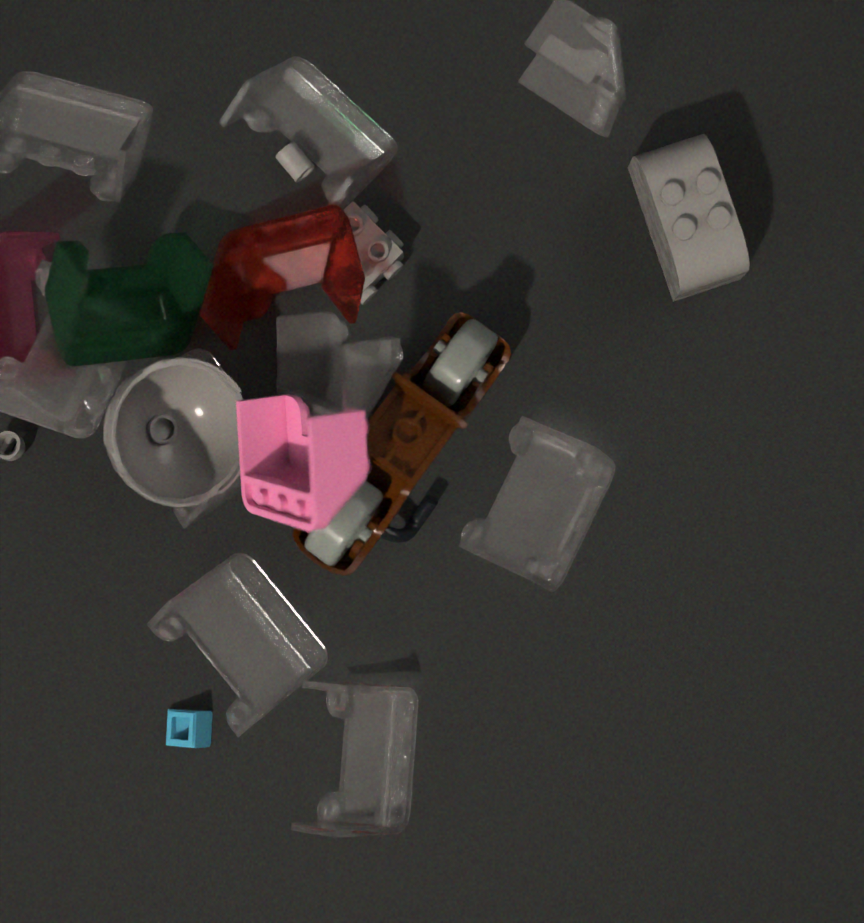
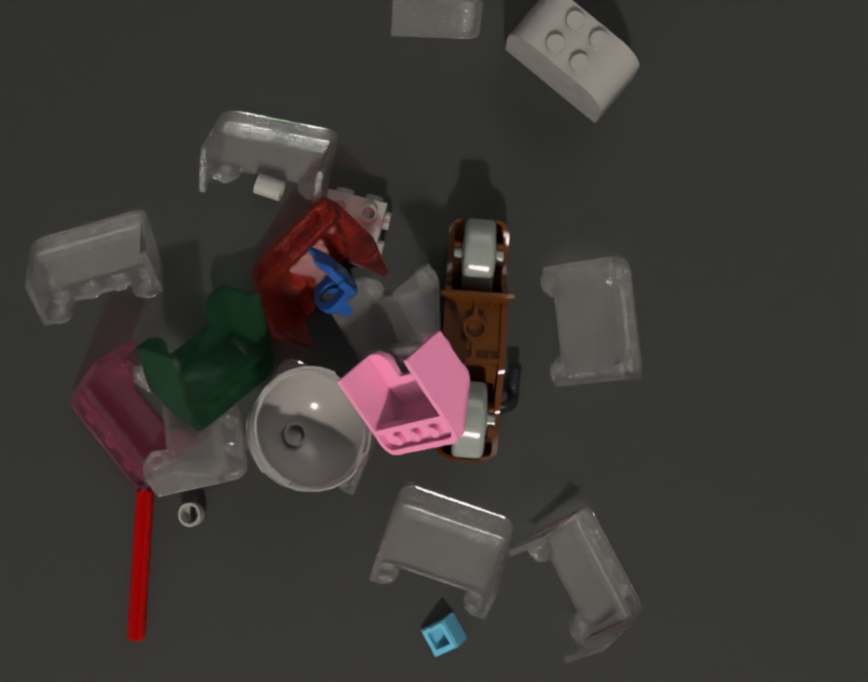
camera: 35 degrees left, 0 degrees up
(302, 301) = (337, 282): none -> blue hair

